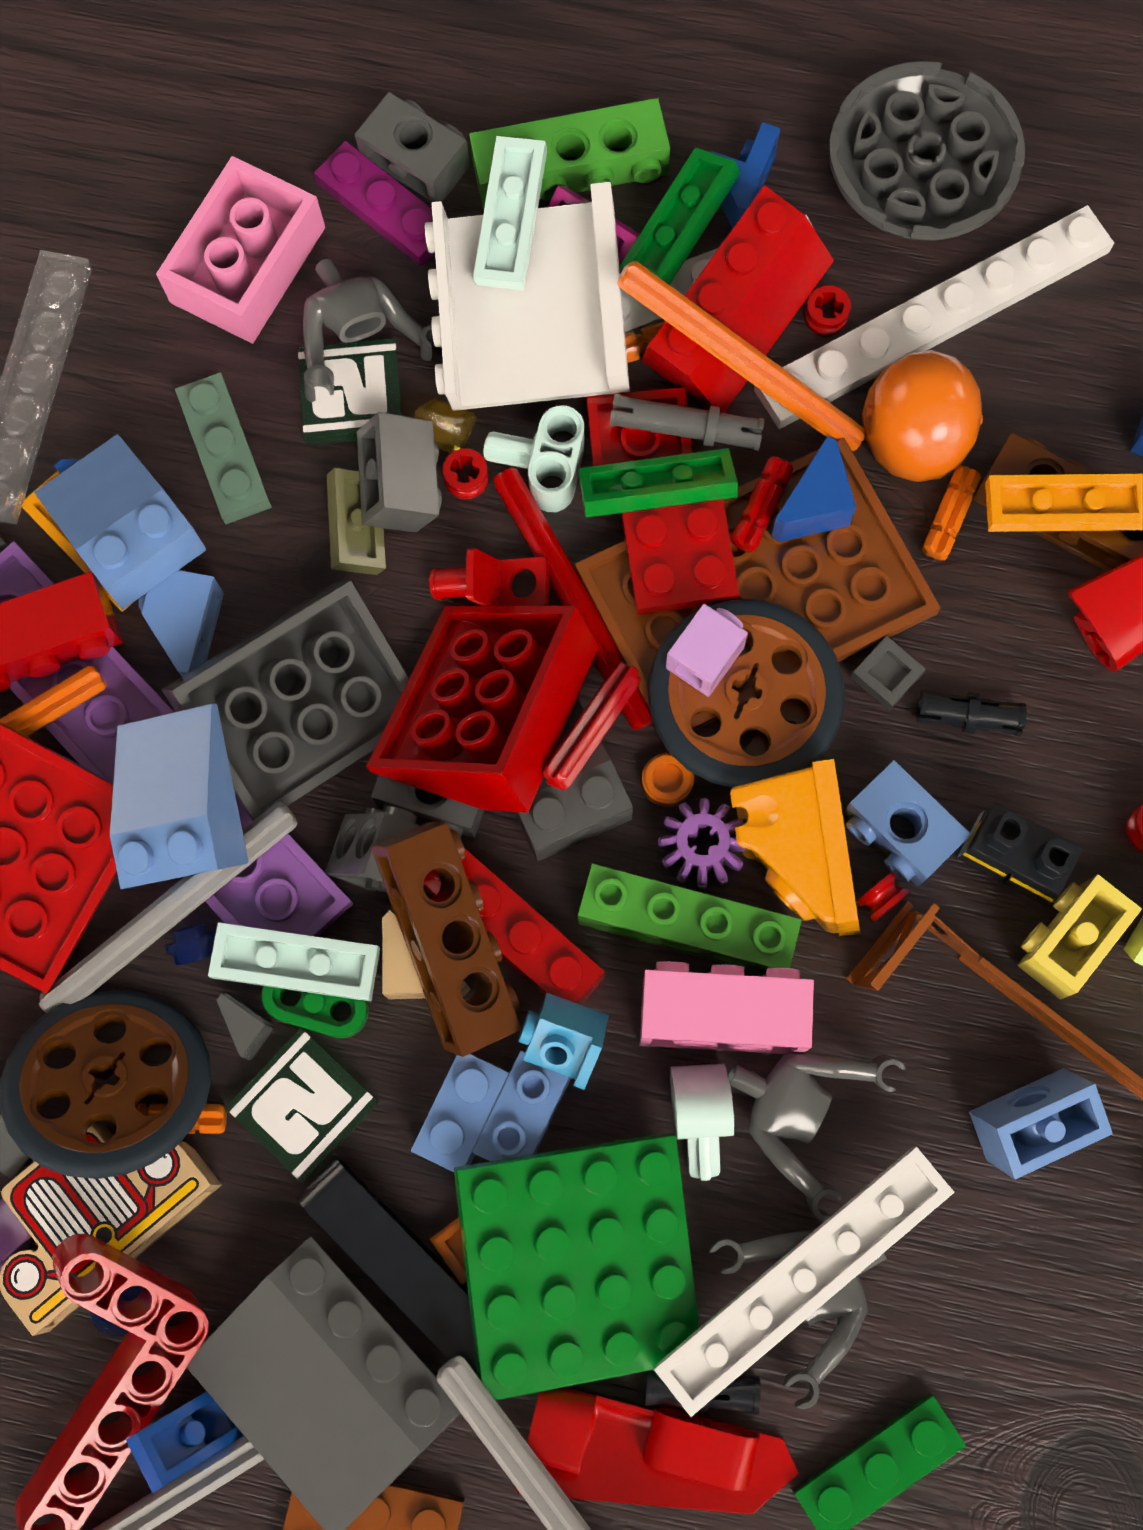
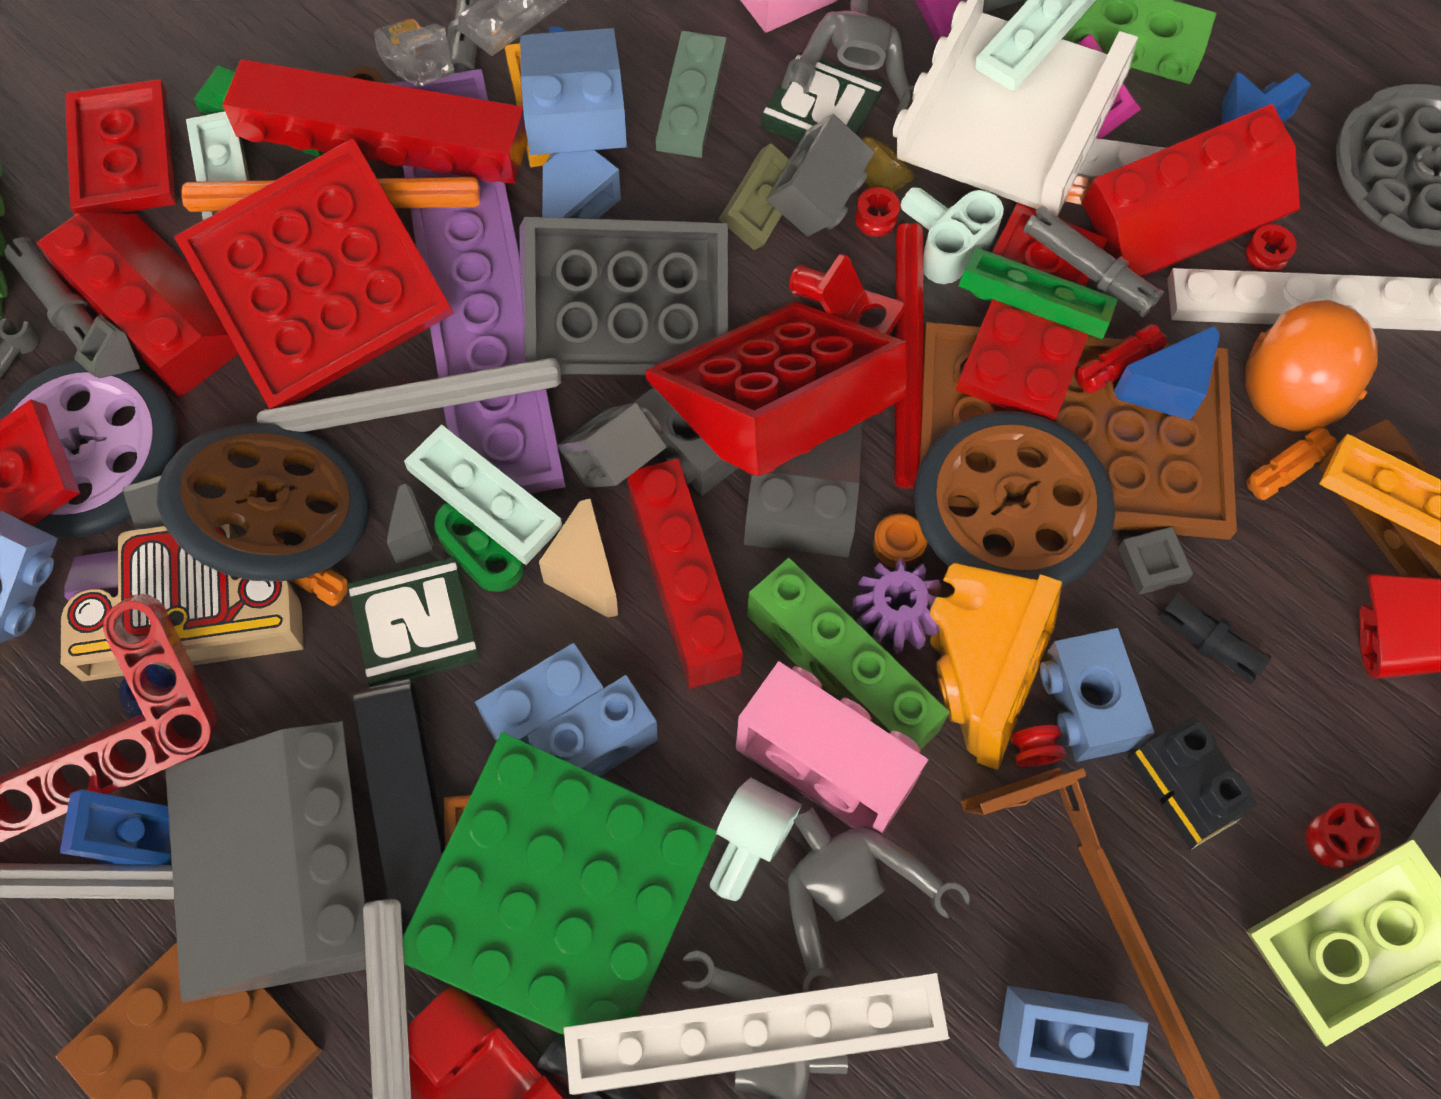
camera: 25 degrees right, 10 degrees down
(174, 799) = (467, 305): medium blue slope -> none
(191, 944) = (407, 436): clear blue plate -> none
(403, 867) = (661, 457): reddish brown brick -> none
(564, 1038) = (670, 684): dark azure brick -> none
(591, 726) = (858, 447): red axle -> none
(683, 214) = (1180, 106): green plate -> none
(707, 648) = (1000, 437): lavender brick -> none
(738, 354) = (1171, 223): orange axle -> none
(1078, 937) = (1207, 885): light yellow brick -> none

